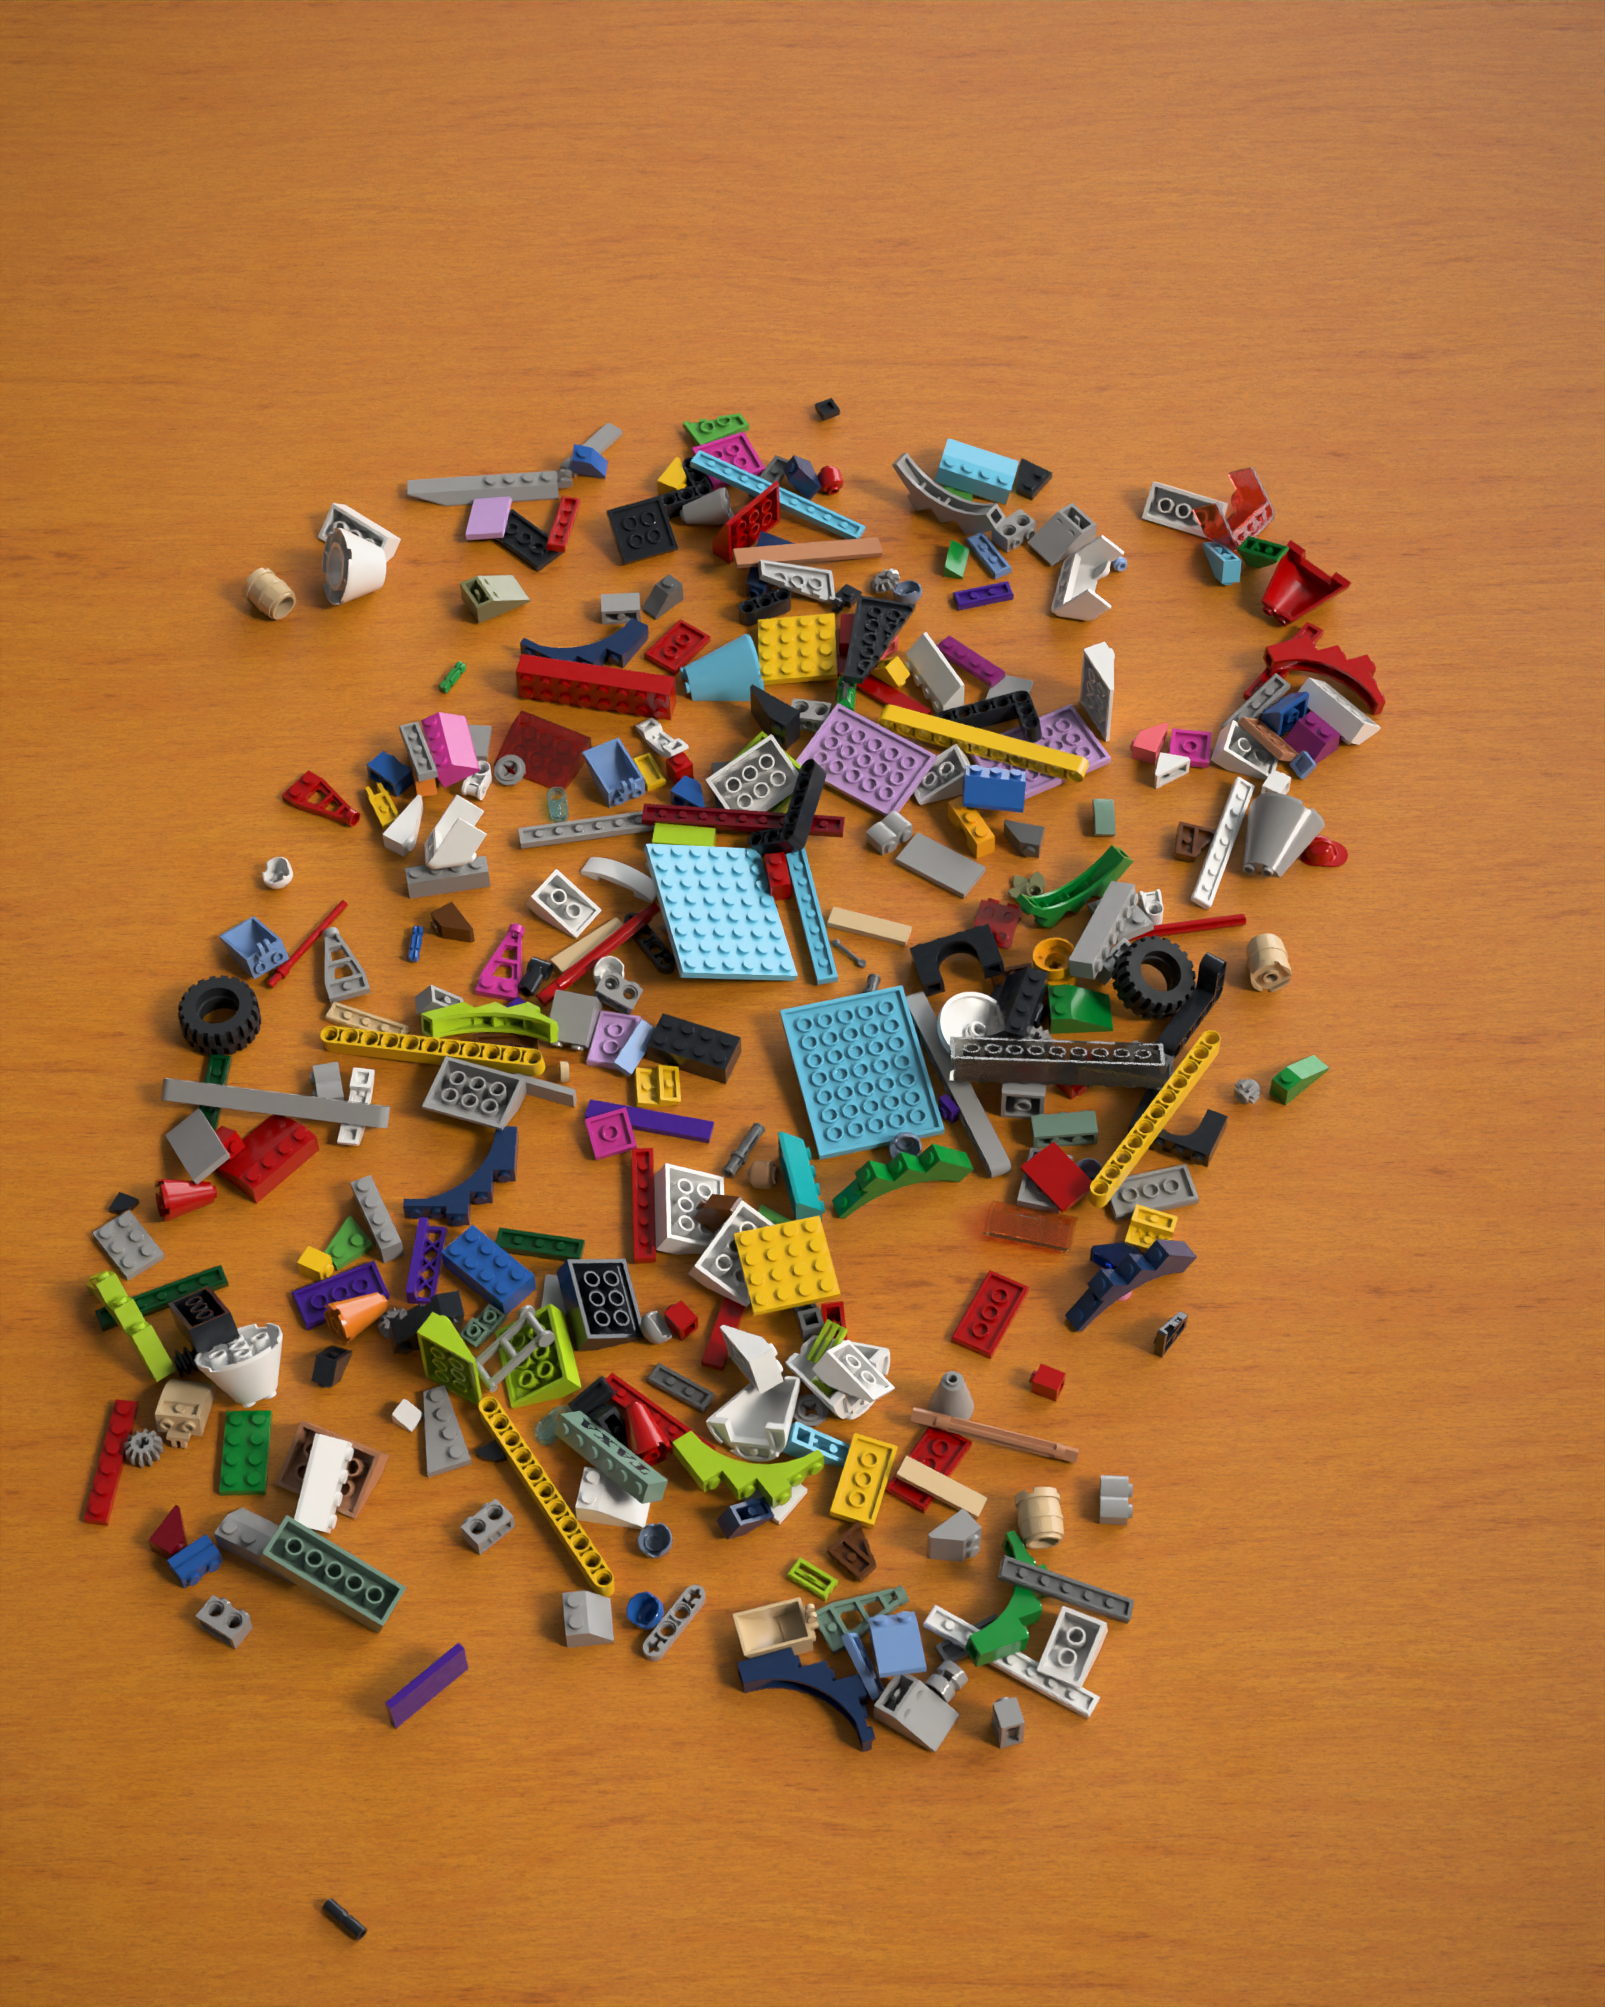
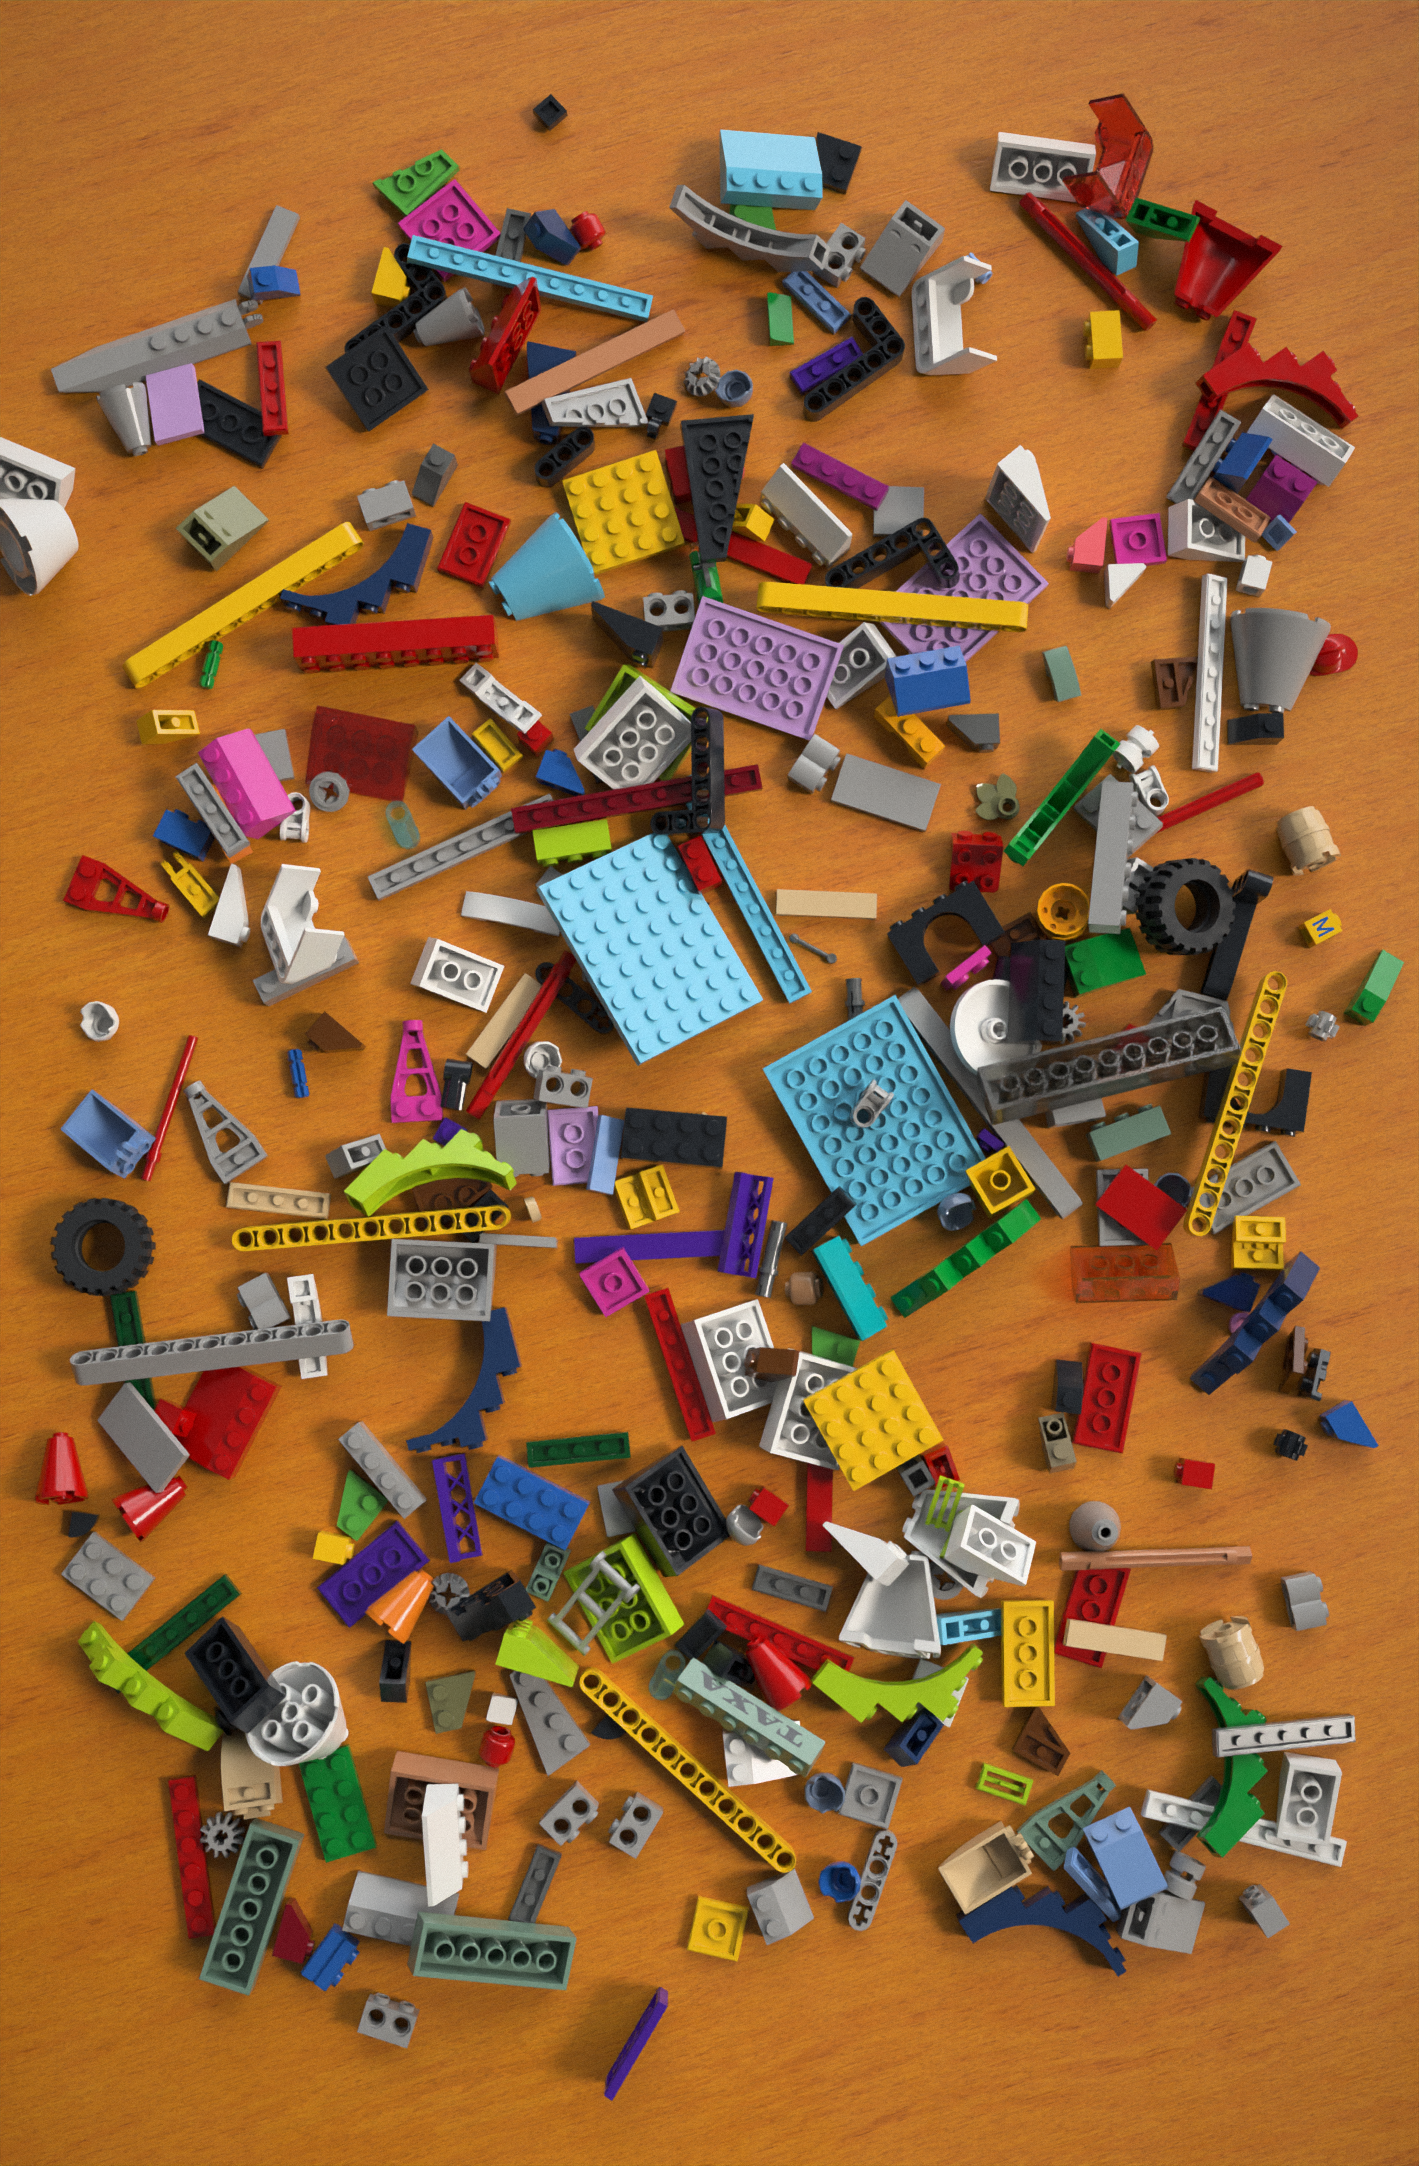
camera: 20 degrees left, 30 degrees up
(121, 1162) = (61, 1473): none -> red cone
(146, 1502) = (251, 1906): none -> sand green brick
(367, 1400) = (449, 1700): none -> olive wing
(391, 1549) = (535, 1885): none -> dark grey tile
(393, 1439) = (497, 1746): none -> red head
(404, 704) = (167, 726): none -> yellow slope
(431, 1499) = (564, 1810): none -> light grey brick
(452, 514) = (128, 415): none -> light grey cone
(489, 645) = (242, 605): none -> yellow beam
(528, 1628) = (717, 1928): none -> yellow tile
(693, 1558) = (870, 1795): none -> light grey tile
(729, 1119) = (741, 1224): none -> dark purple fence
(797, 1126) = (820, 1220): none -> black tile
(859, 1050) = (871, 1104): none -> light grey piece
(936, 1331) = (1056, 1443): none -> dark tan slope
(948, 1130) = (999, 1182): none -> yellow slope
(957, 1298) = (1067, 1387): none -> black slope
(965, 980) = (973, 963): none -> dark pink plate
(1026, 596) = (860, 366): none -> black beam
(1135, 1379) = (1290, 1444): none -> black gear
(1148, 875) = (1139, 745): none -> white wheel
(1155, 1318) = (1294, 1359): none -> reddish brown wing
(1188, 1379) = (1347, 1425): none -> blue slope
(1200, 620) = (1104, 339): none -> yellow brick
(1203, 573) = (1087, 261): none -> red piece
(1249, 885) = (1256, 729): none -> black slope
(1264, 1026) = (1320, 928): none -> yellow brick

